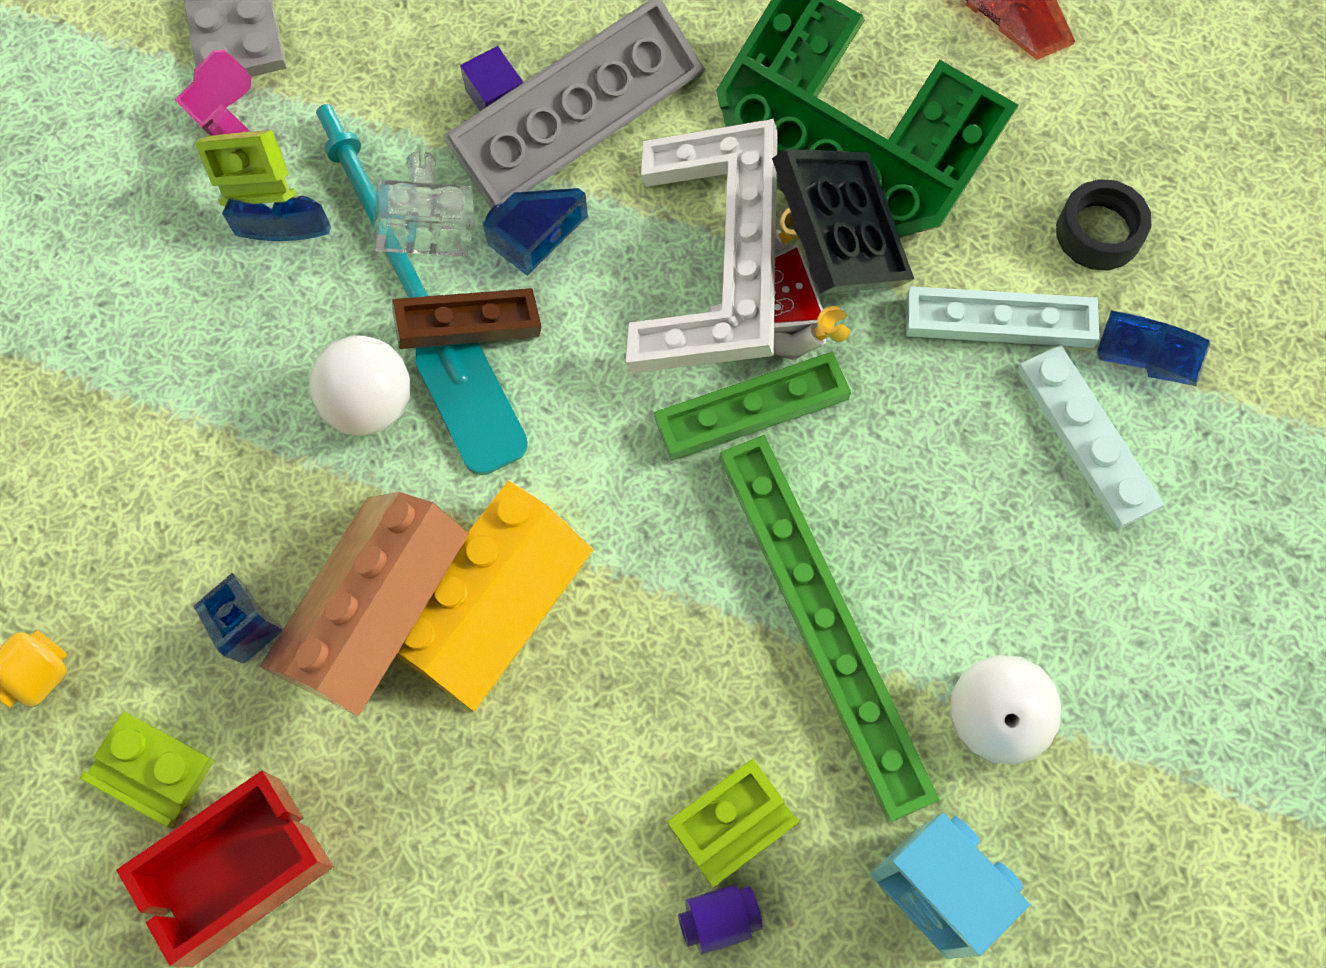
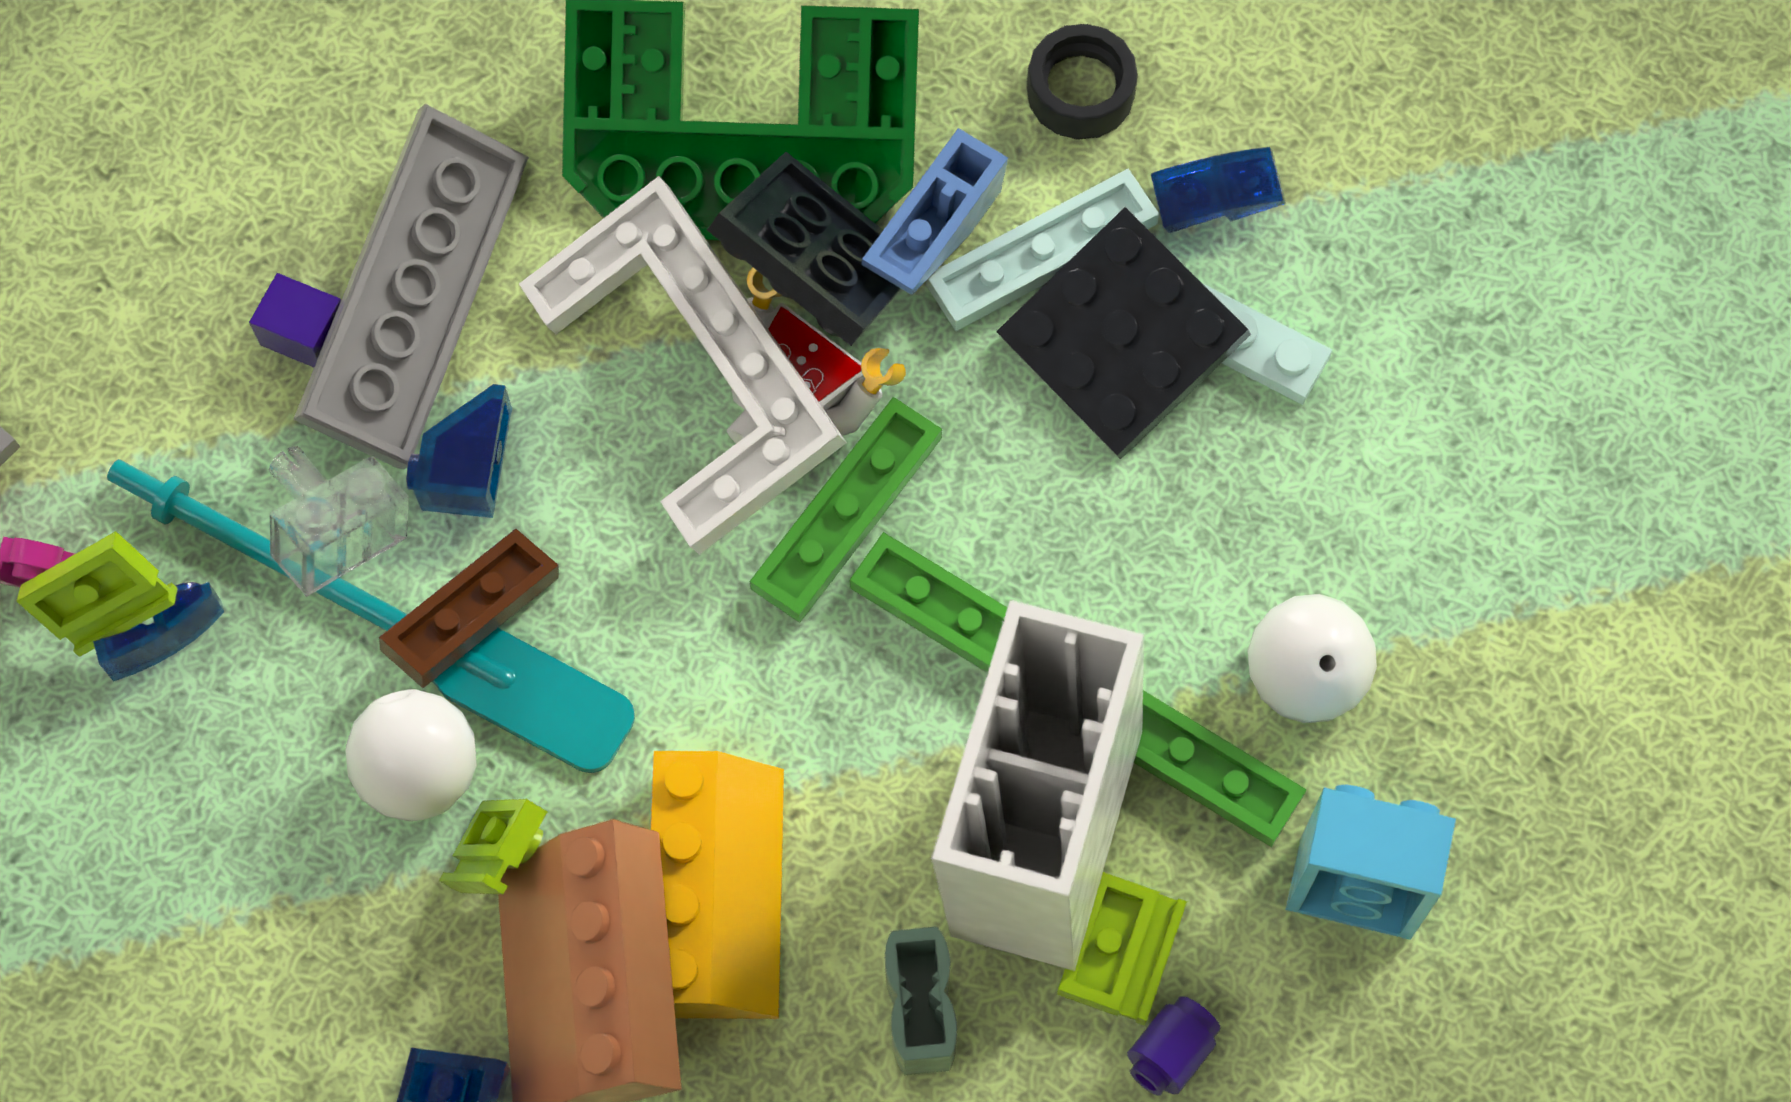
camera: 35 degrees left, 0 degrees up
(373, 475) = (496, 839): none -> lime plate
(557, 777) = (922, 1012): none -> sand green brick
(734, 665) = (1041, 784): none -> white brick
(944, 248) = (938, 212): none -> medium blue slope
(1021, 404) = (1123, 333): none -> black plate

